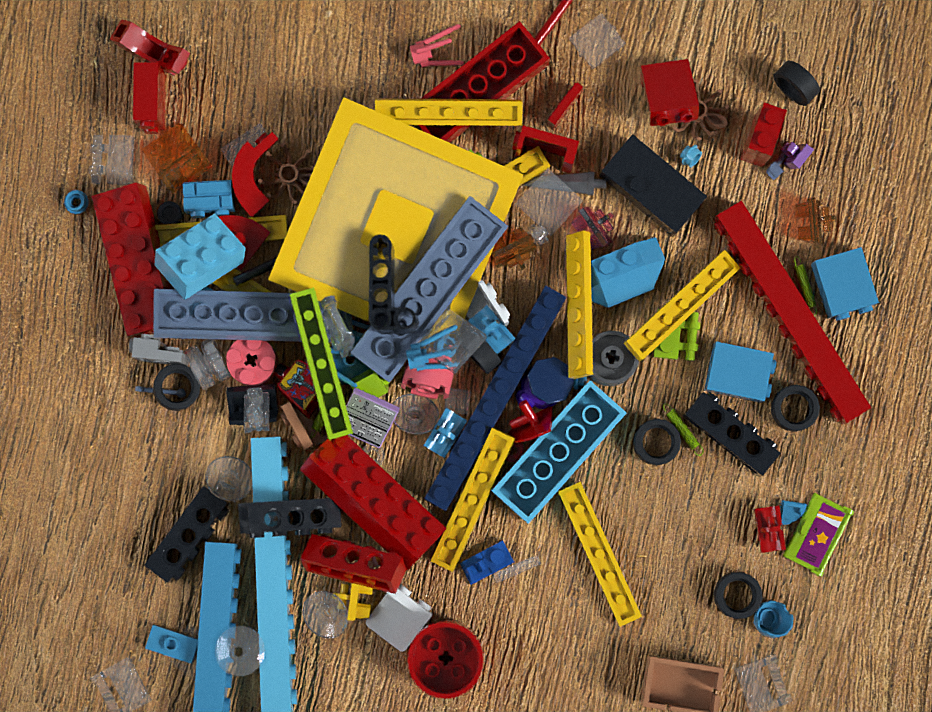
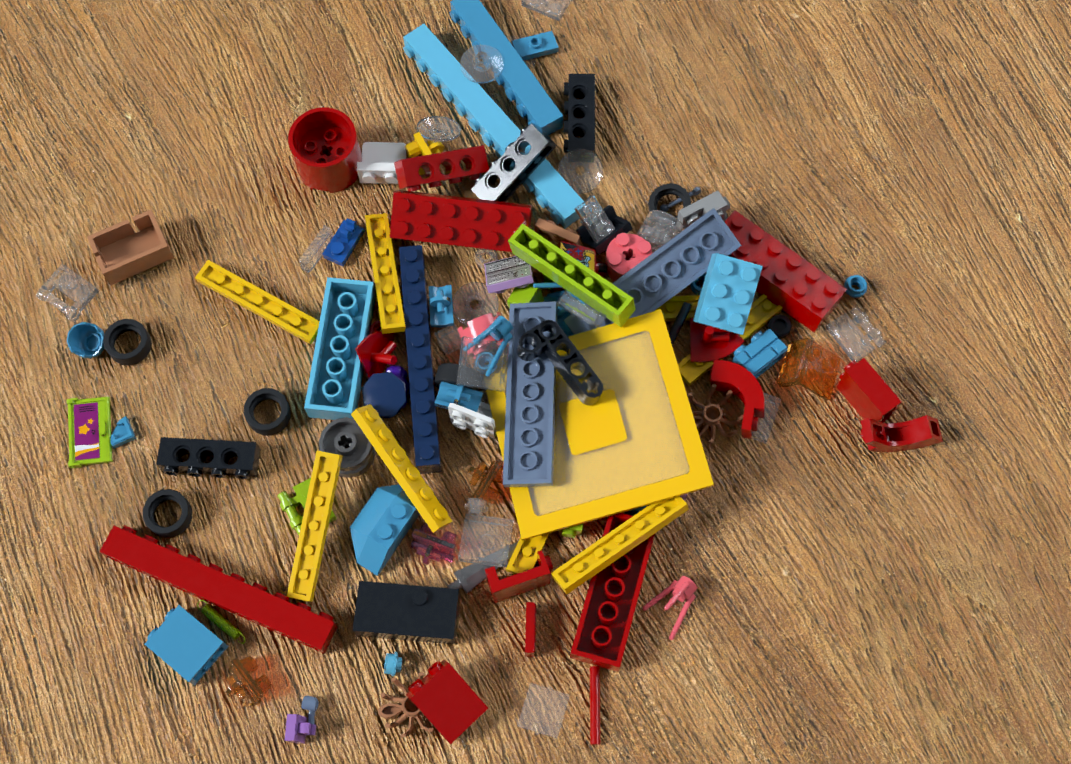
camera: 145 degrees right, 15 degrees down
(683, 429) = (252, 437): lime piece -> none
(740, 372) = (232, 510): dark azure brick -> none
(763, 134) = (337, 718): red brick -> none
(769, 529) = (131, 404): red hips -> none

